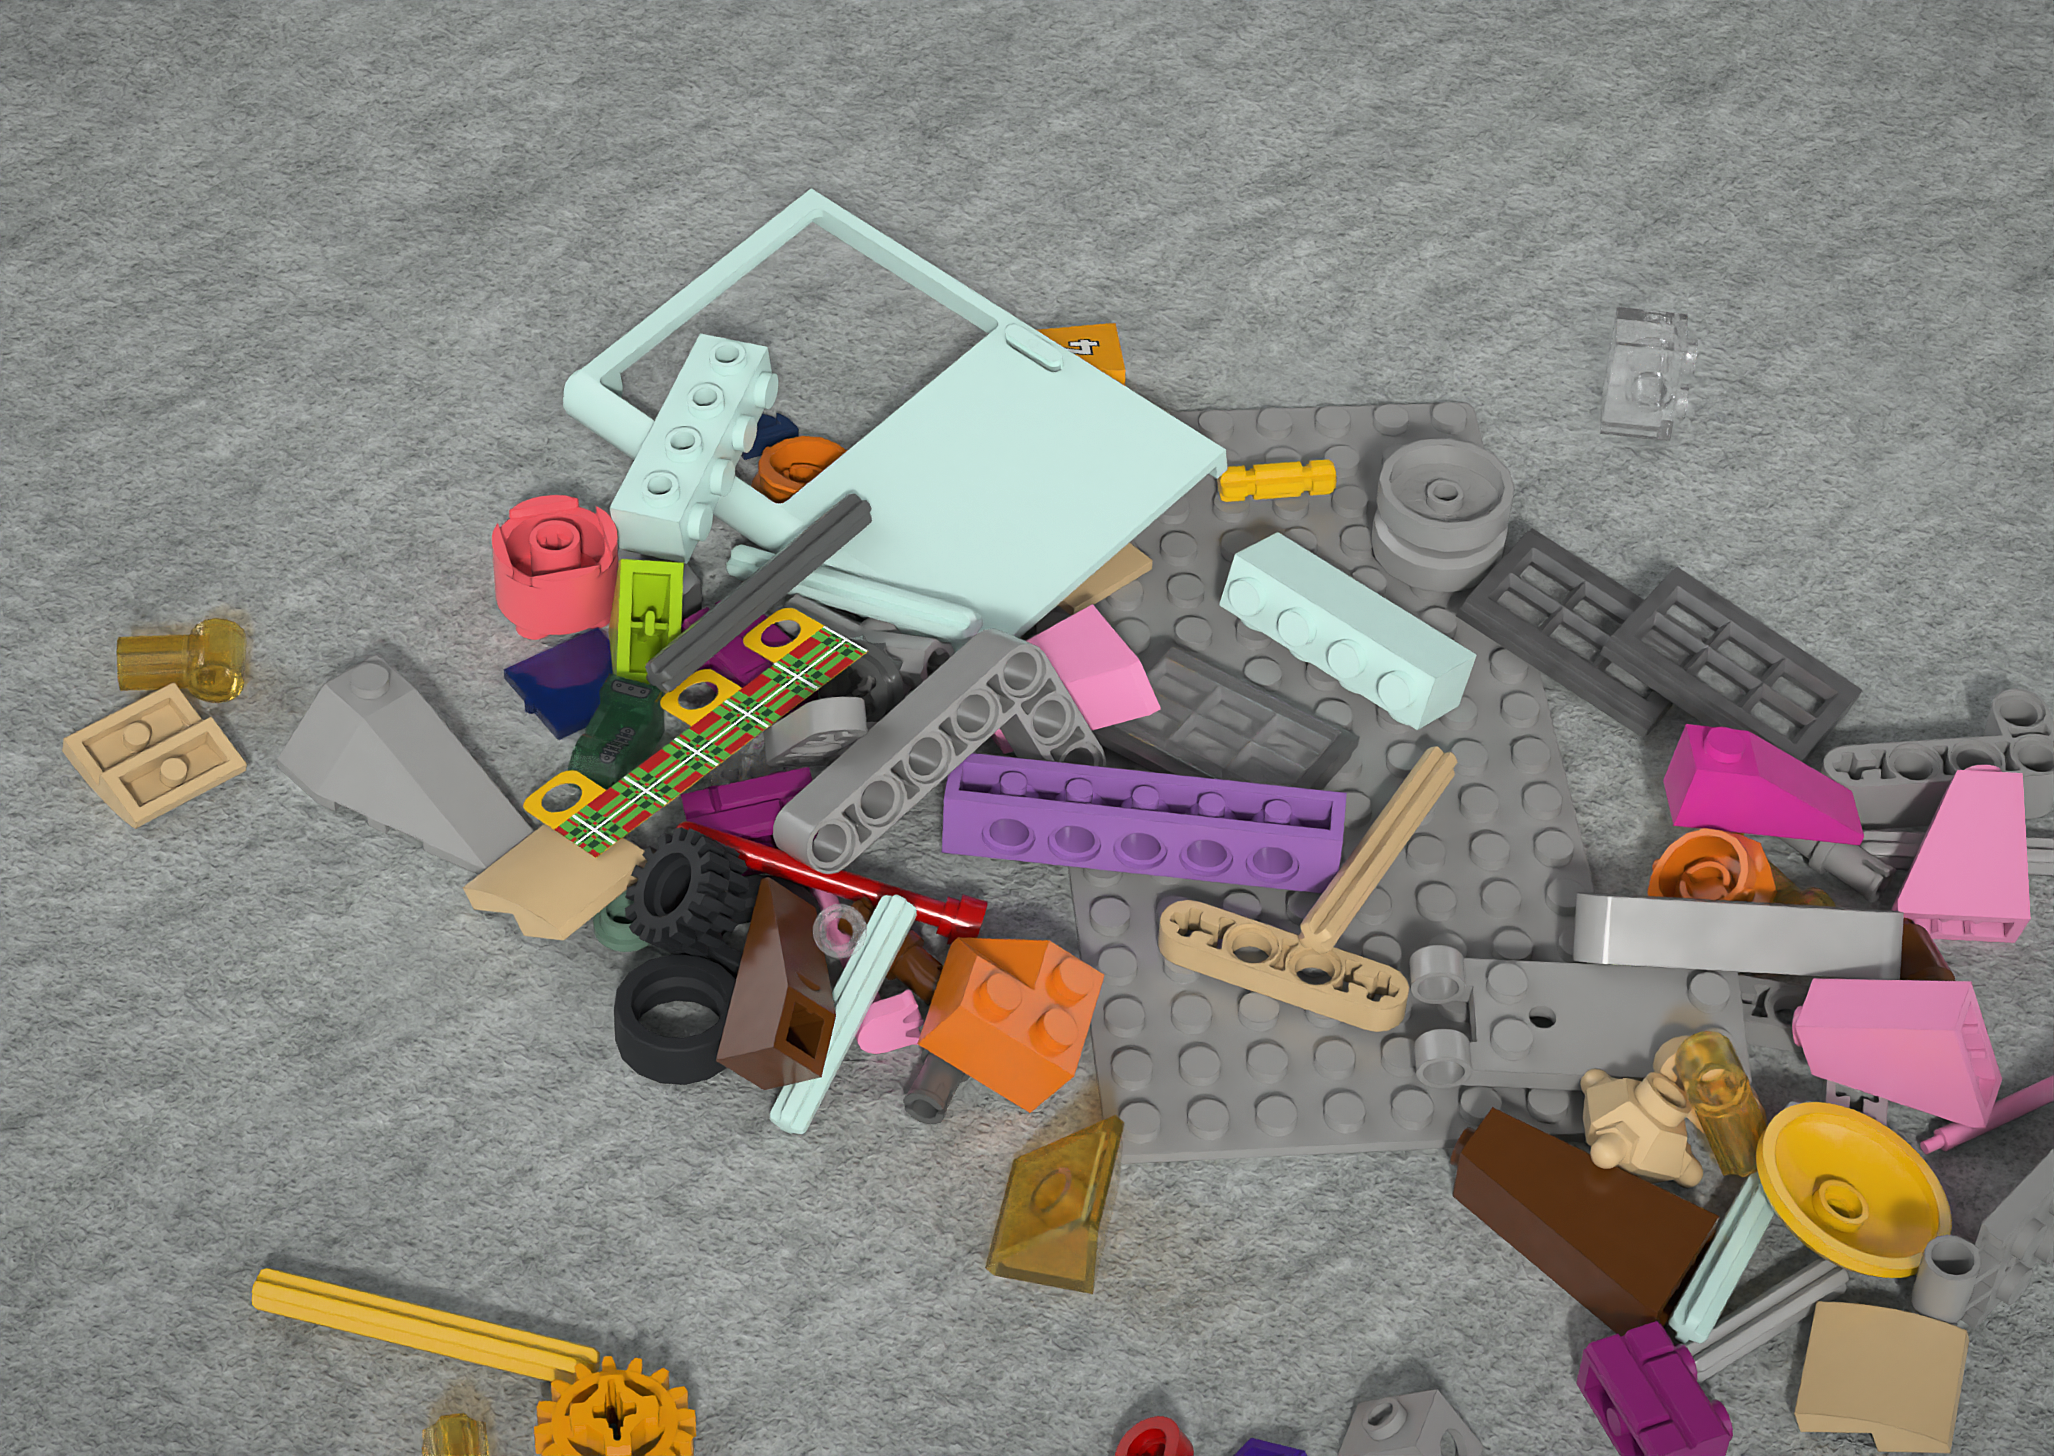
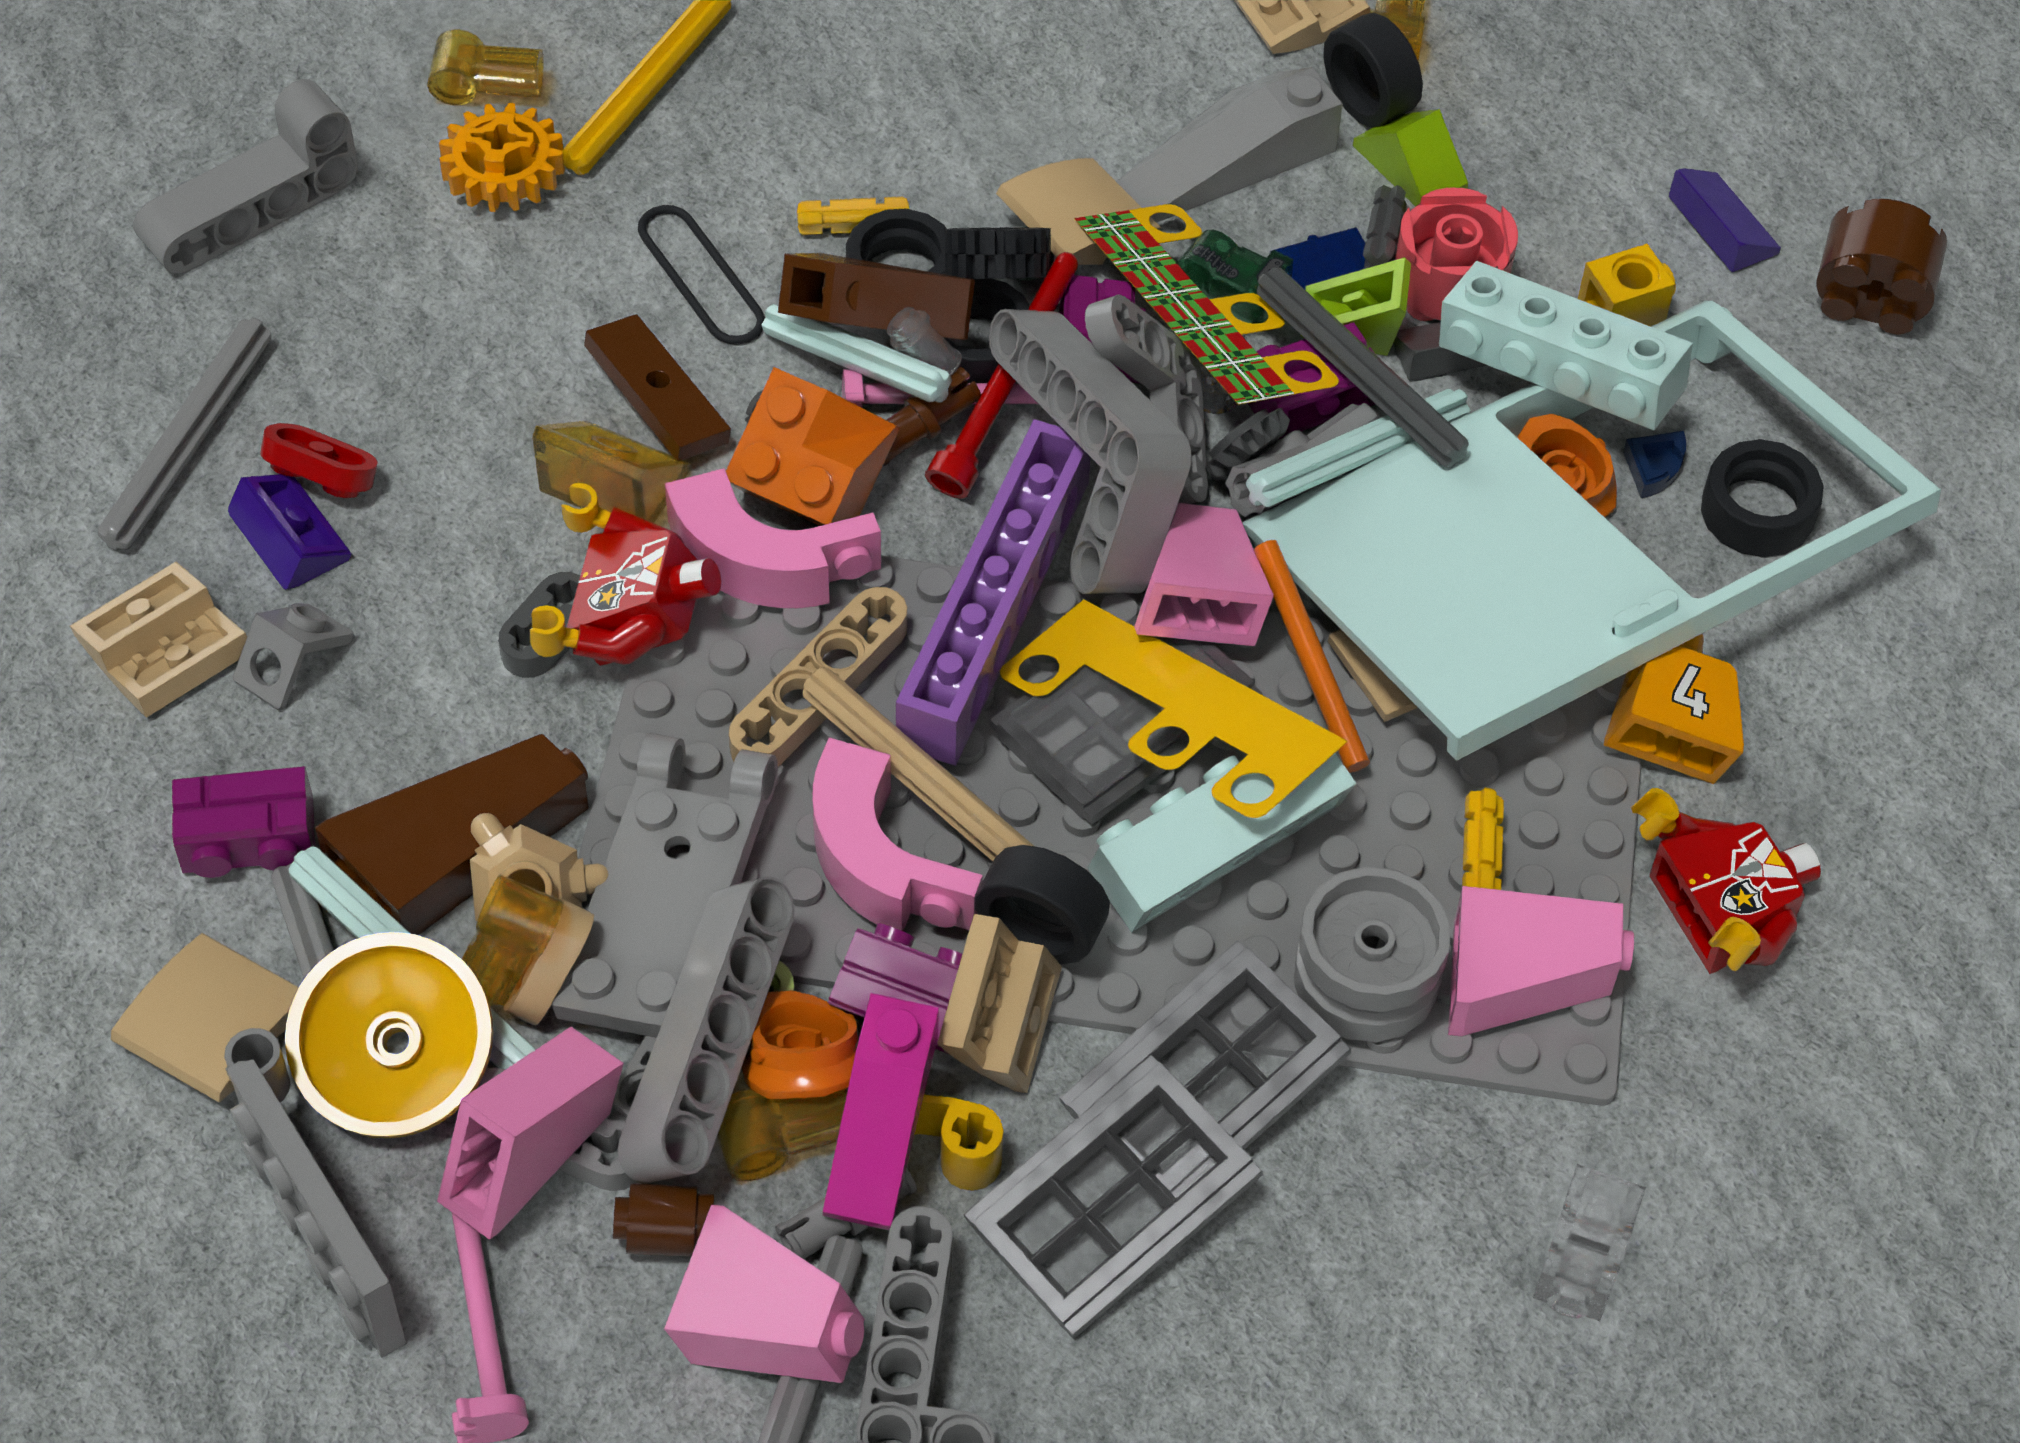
camera: 105 degrees right, 10 degrees up
(280, 634) = (1373, 70): none -> black tyre
(390, 624) = (1414, 154): none -> lime slope
(422, 407) = (1721, 218): none -> dark purple slope
(493, 271) = (1881, 265): none -> reddish brown brick
(511, 637) = (1384, 225): none -> dark grey axle
(557, 452) = (1630, 285): none -> yellow brick
(606, 1085) = (841, 214): none -> yellow axle
(741, 1237) = (730, 339): none -> black piece
(802, 324) = (1768, 463): none -> black tyre
(932, 1195) = (657, 387): none -> reddish brown tile
(1126, 597) = (1311, 654): none -> orange bar
(1153, 1061) = (767, 562): none -> bright pink arch
(1236, 640) = (1192, 698): none -> yellow piece
(1244, 1127) = (631, 590): none -> red torso
(1251, 337) = (1726, 883): none -> red torso
(1284, 1227) = (516, 629): none -> dark grey beam
(1370, 417) = (1531, 956): none -> bright pink slope
(1465, 893) = (862, 861): none -> bright pink arch
(1499, 724) = (1045, 900): none -> black tyre
(1606, 739) = (999, 1004): none -> tan slope
(1607, 827) = (891, 968): none -> magenta brick

